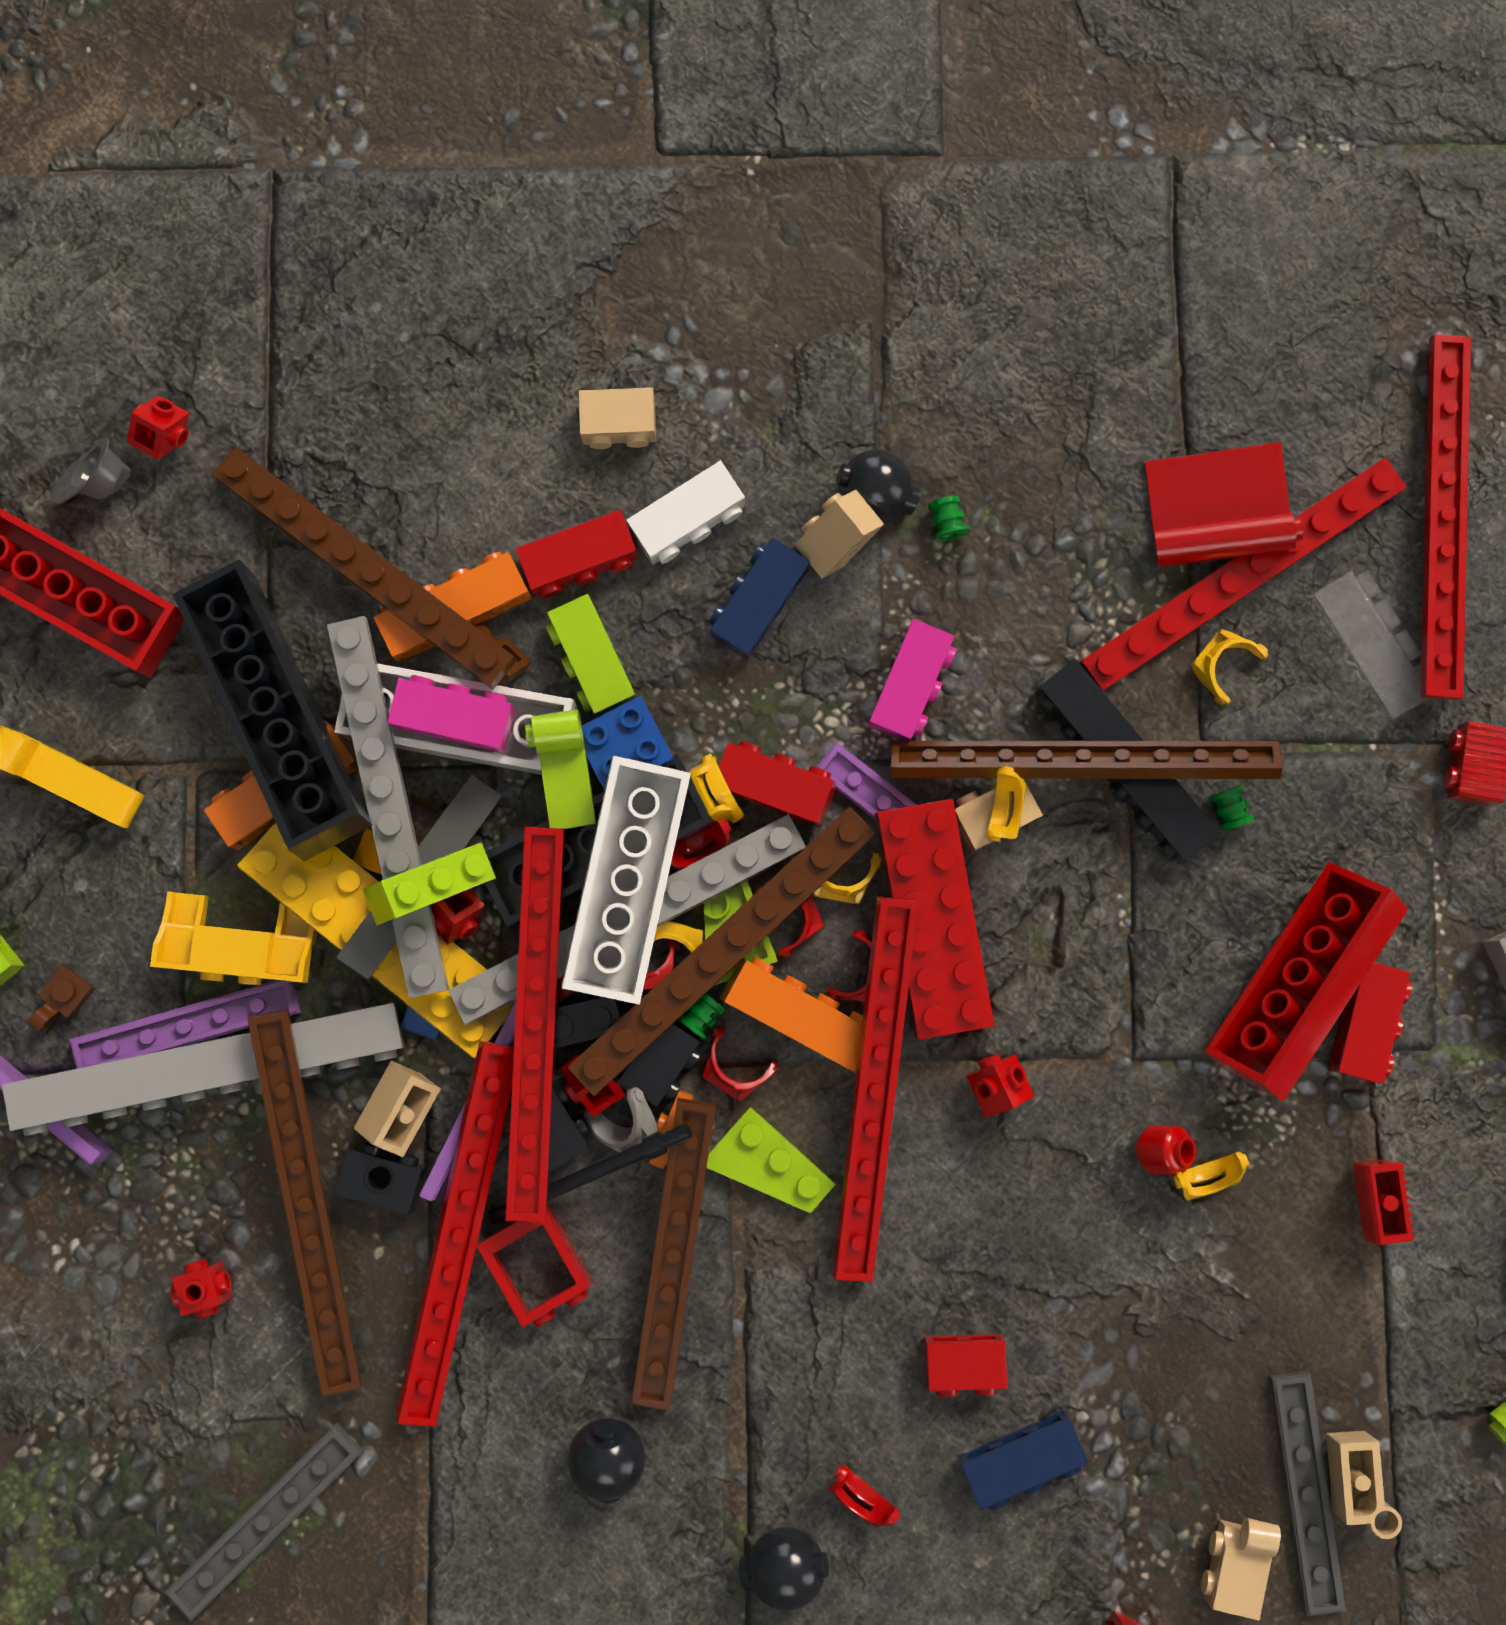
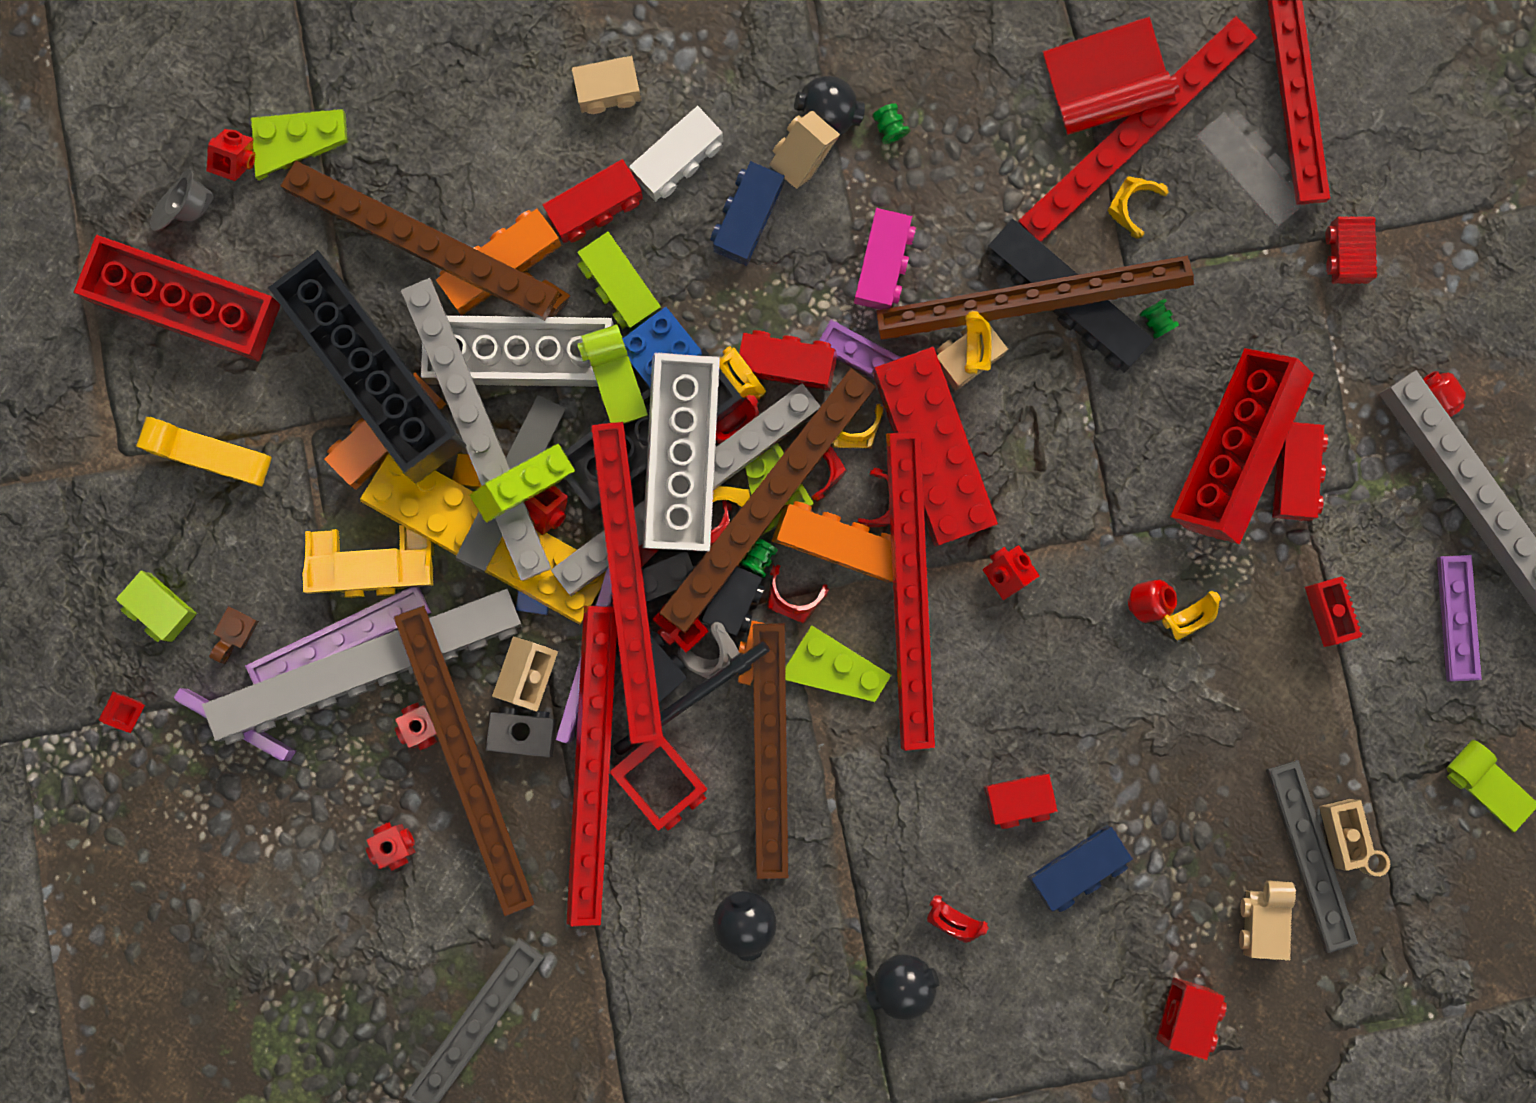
camera: 15 degrees left, 0 degrees up
(239, 418) = (293, 137): none -> lime wing
(245, 1154) = (425, 737): none -> brick
(452, 714) = (516, 345): dark pink brick -> none

